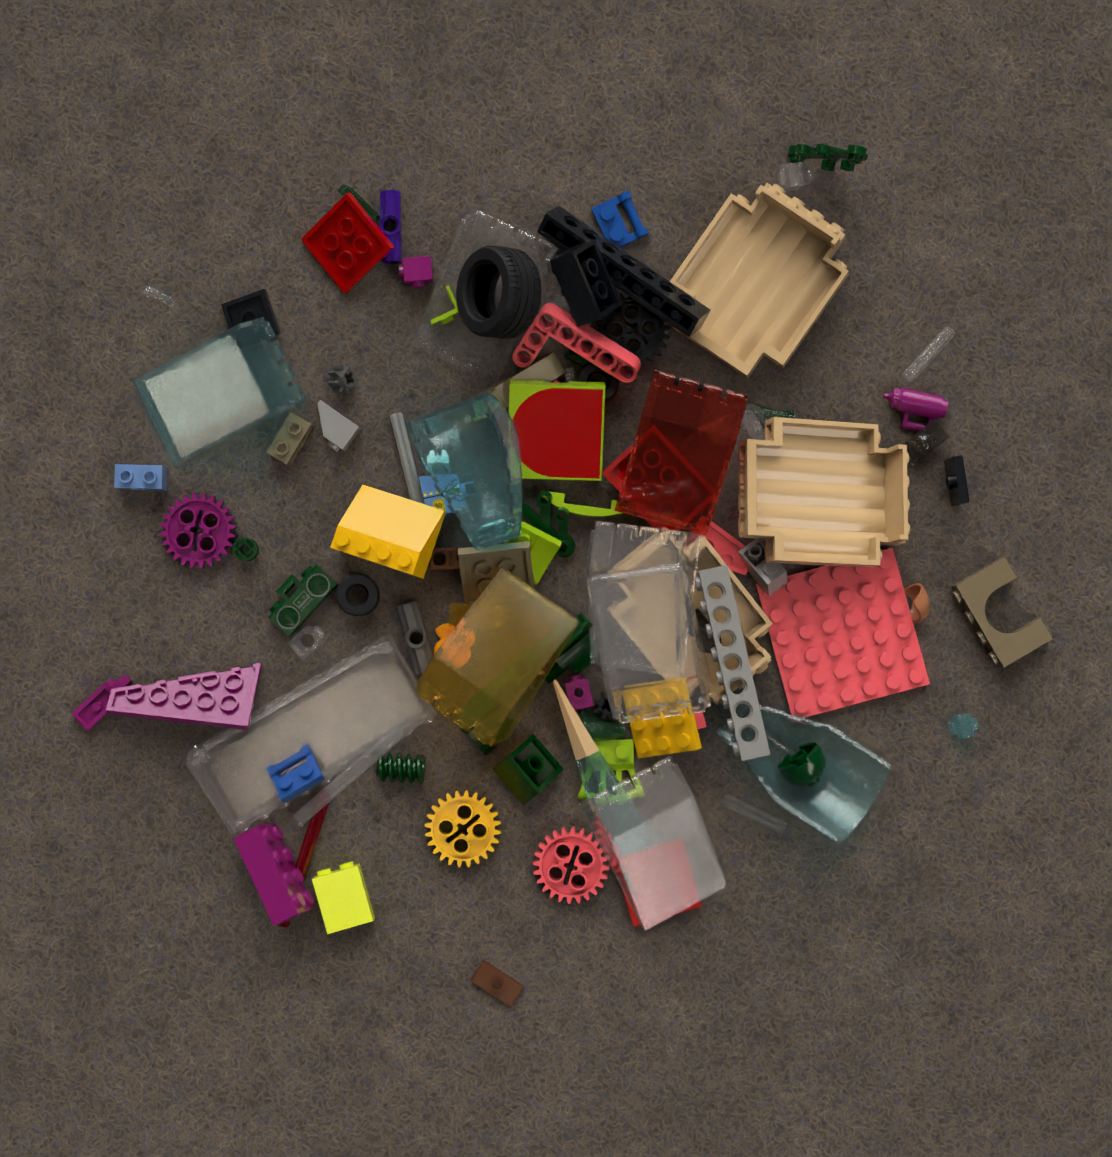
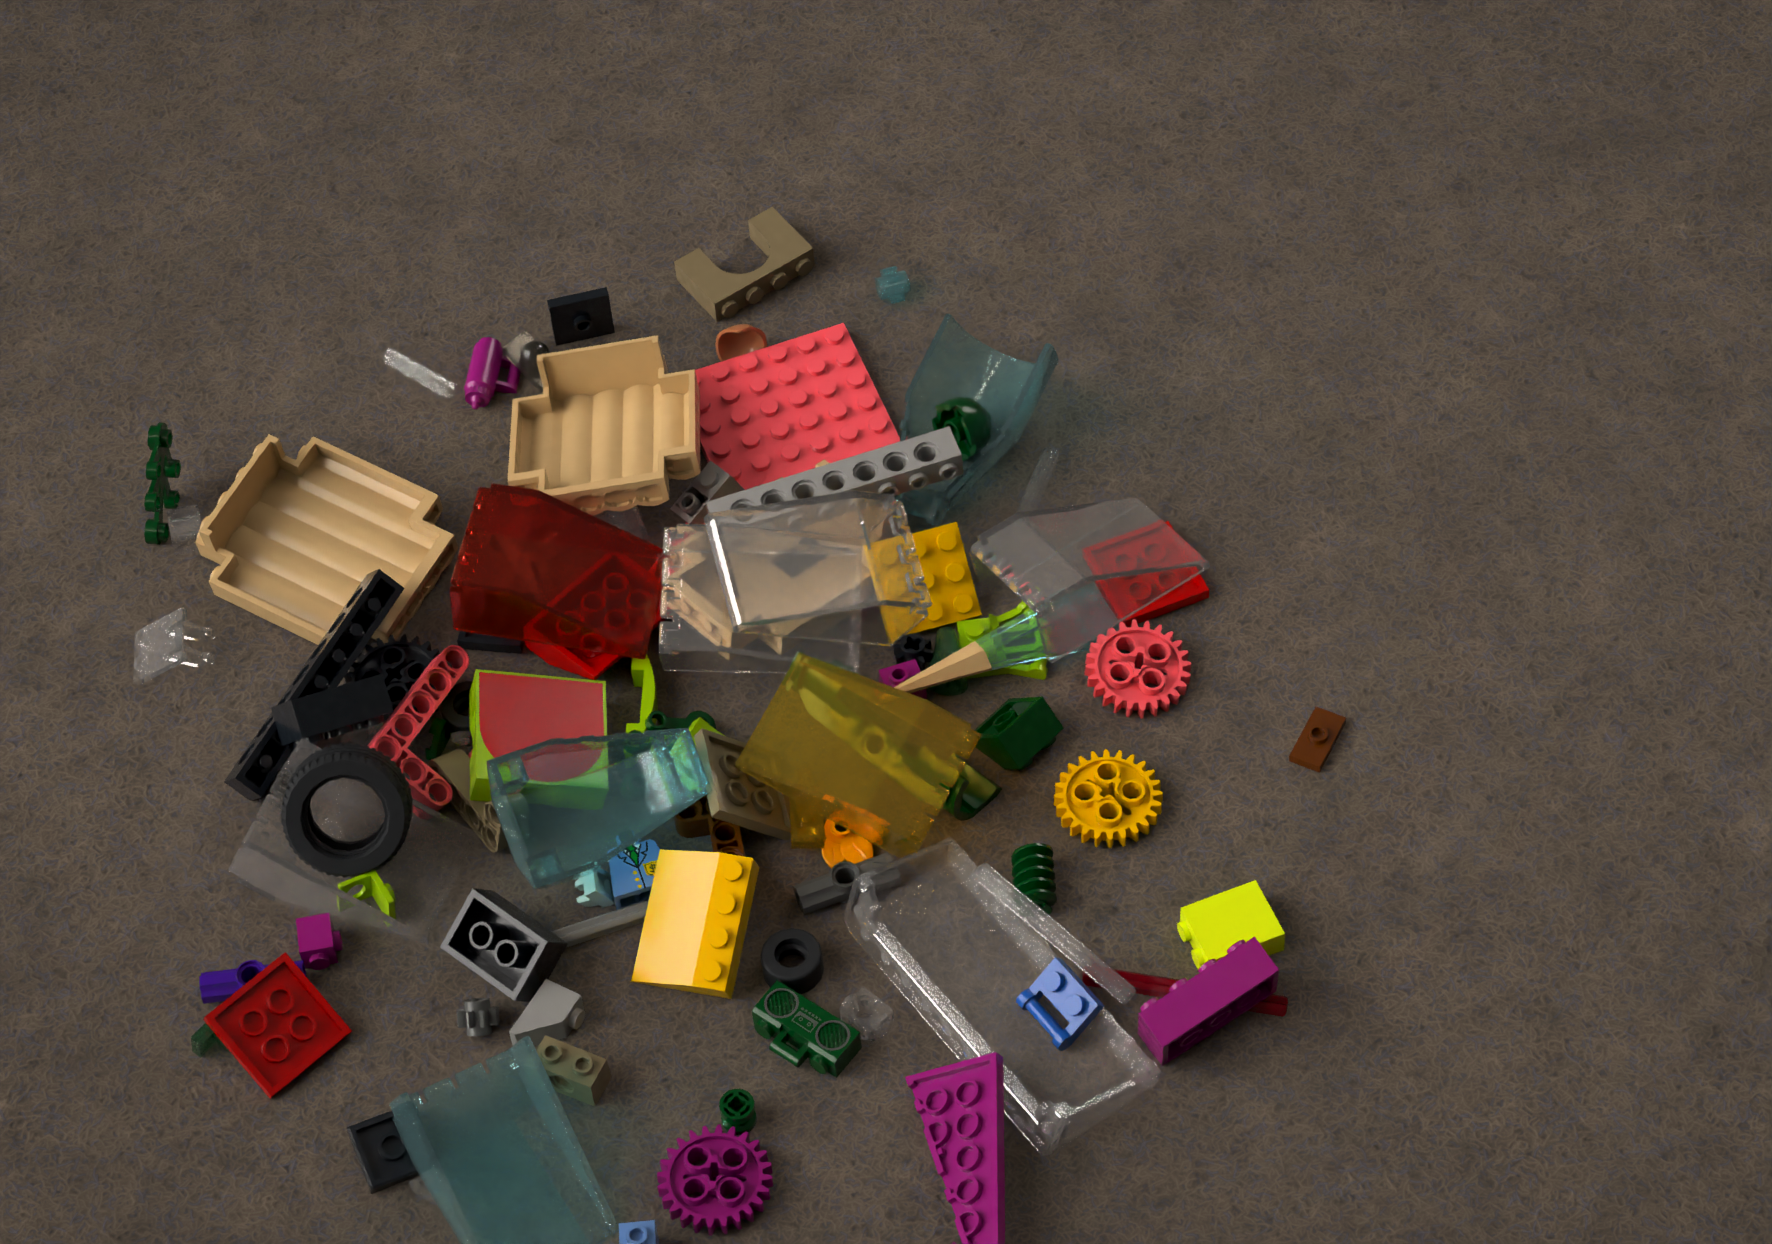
camera: 85 degrees left, 35 degrees down
(387, 398) = (503, 944): none -> black brick
(612, 223) = (241, 728): blue plate -> none
(686, 159) = (162, 646): none -> clear plate

